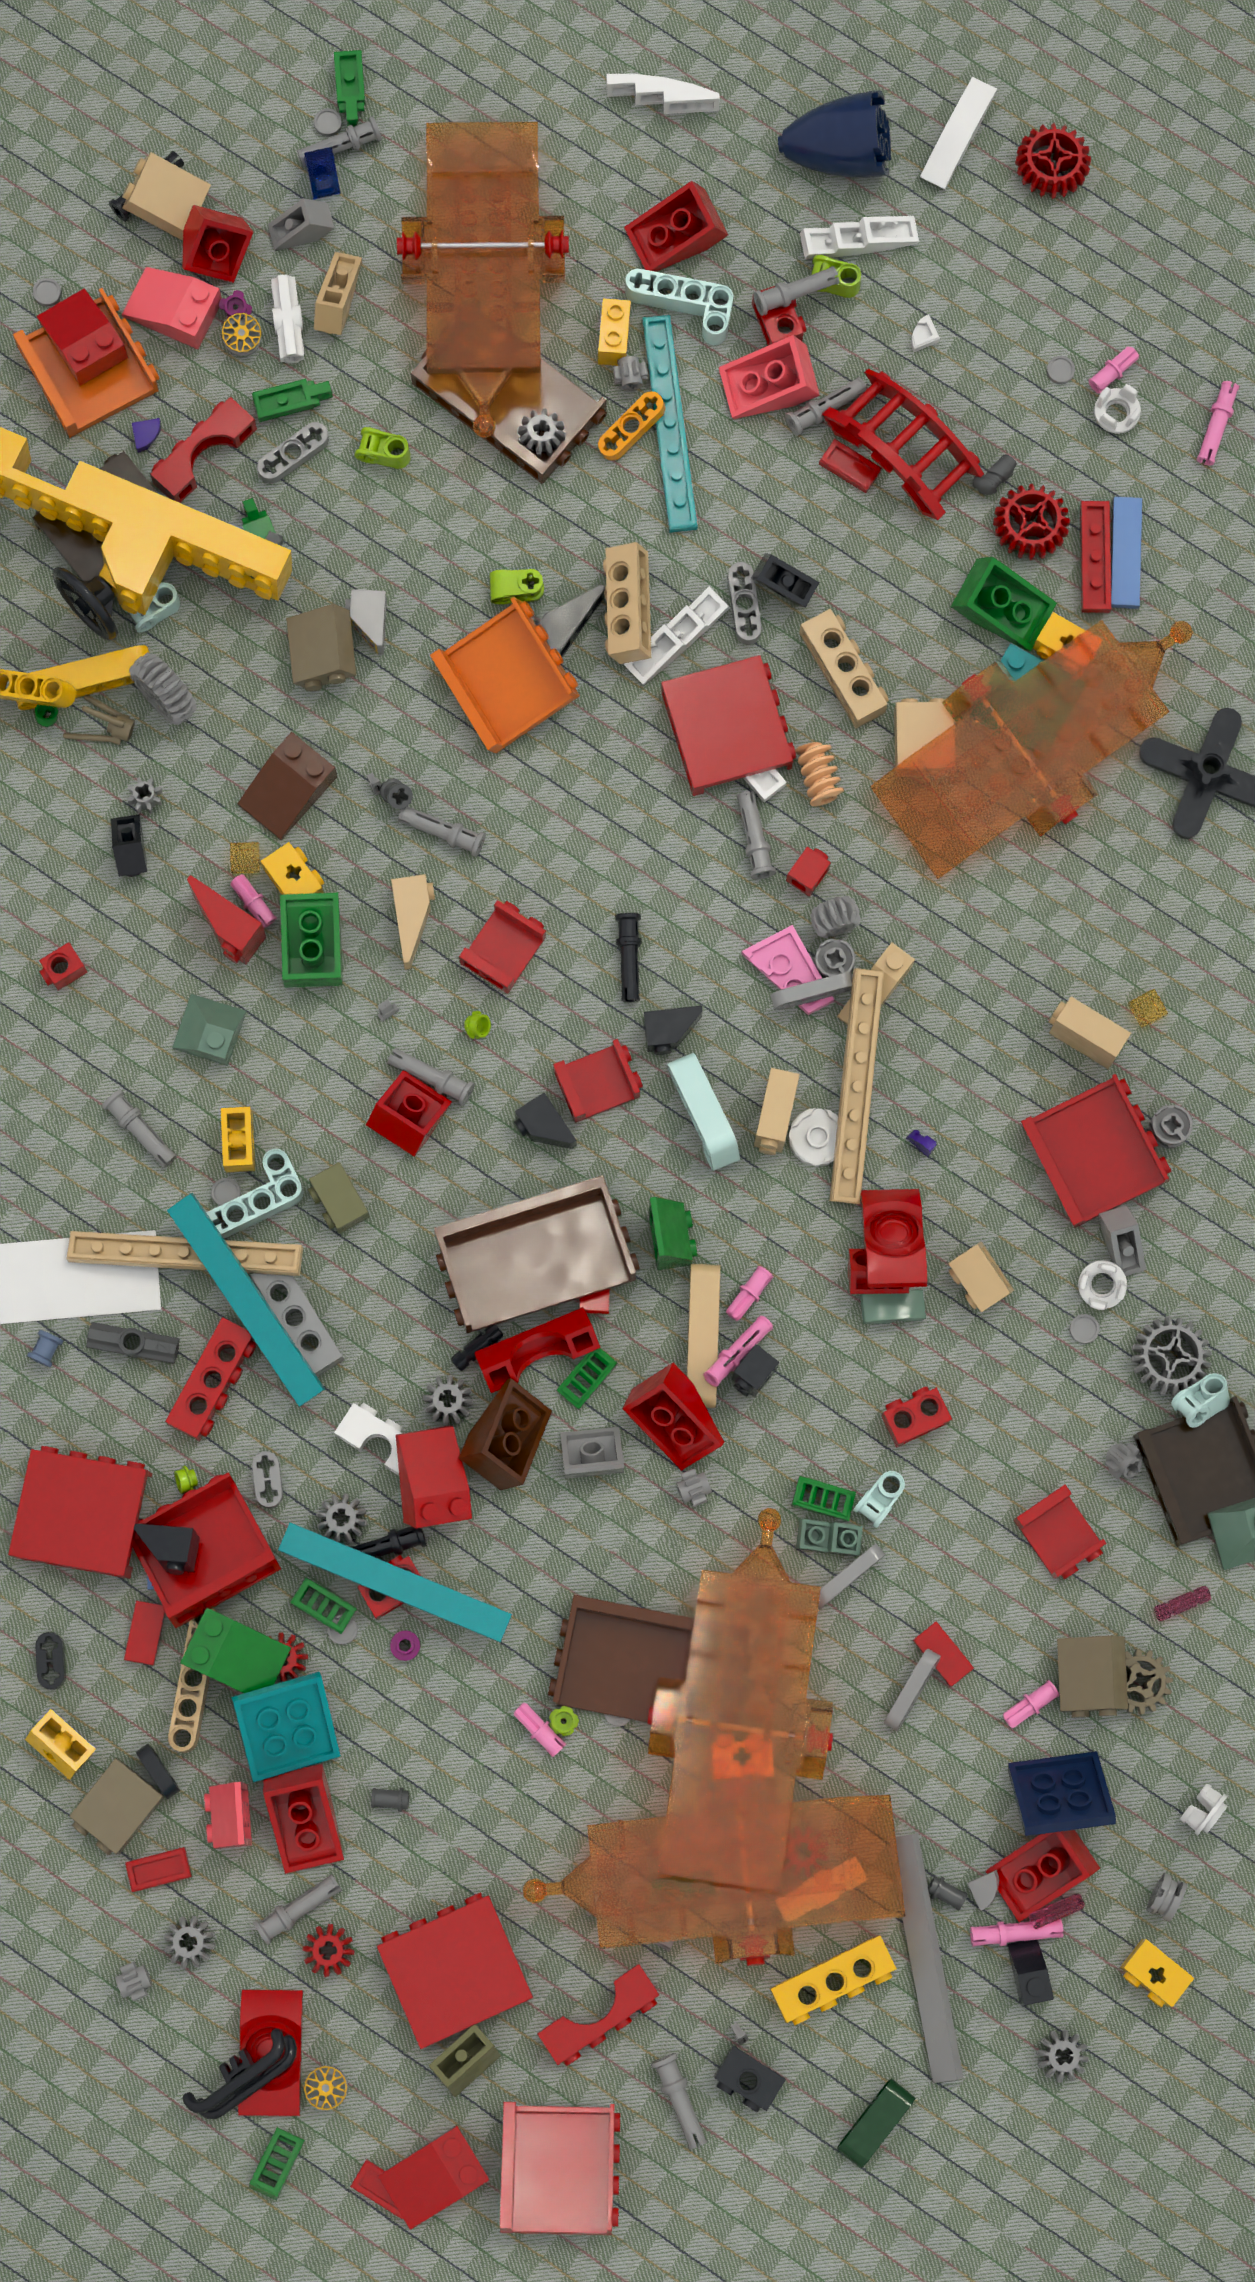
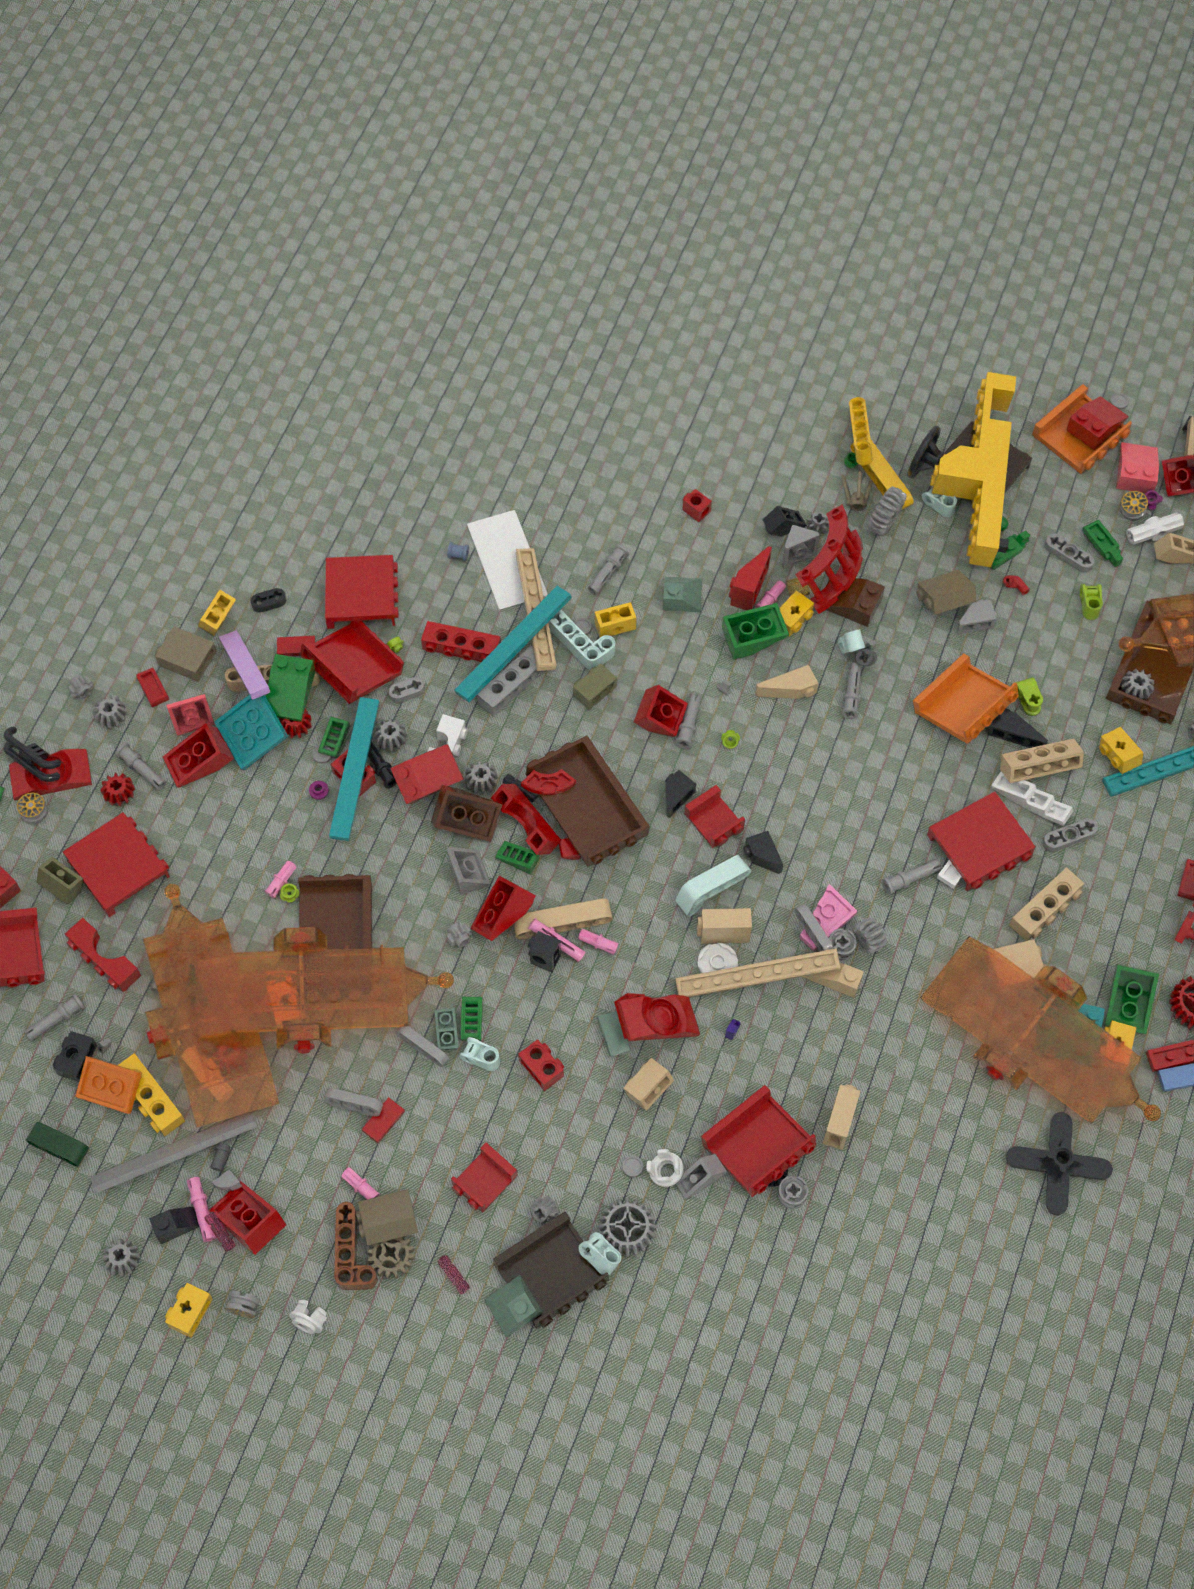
camera: 80 degrees right, 15 degrees down
(114, 1340) = (473, 604): dark grey piece -> none
(146, 433) = (1050, 471): dark purple tile -> none
(157, 1771) = (211, 670): black beam -> none
(172, 1546) = (348, 639): black slope -> none
(175, 1716) = (244, 665): none -> lavender tile
(180, 836) = (799, 545): none -> light grey slope
(226, 426) = (1031, 492): red arch -> none
(238, 785) = (849, 560): none -> red fence
(323, 543) = (1016, 582): none -> red arm
(370, 807) = (851, 642): none -> light aqua piece
(390, 1799) = (220, 808): dark grey pin -> none
(495, 1302) = (548, 783): none -> red tile
(504, 946) = (786, 744): red panel -> none
(623, 491) = (1121, 750): none -> yellow brick
(629, 944) = (812, 816): black pin -> none
(631, 414) = (1179, 739): light orange beam -> none
(670, 1233) = (622, 876): green slope -> none
(785, 580) = (1093, 850): black brick -> none
(809, 870) = (898, 914): red brick -> none
(809, 2034) = (108, 1084): none -> orange tile
(818, 773) = (967, 904): light nougat piece -> none
(1061, 1793) = (299, 1212): dark blue plate -> none
(1115, 1735) = (349, 1245): none -> dark orange beam
(1148, 1008) = (874, 1159): clear yellow tile -> none

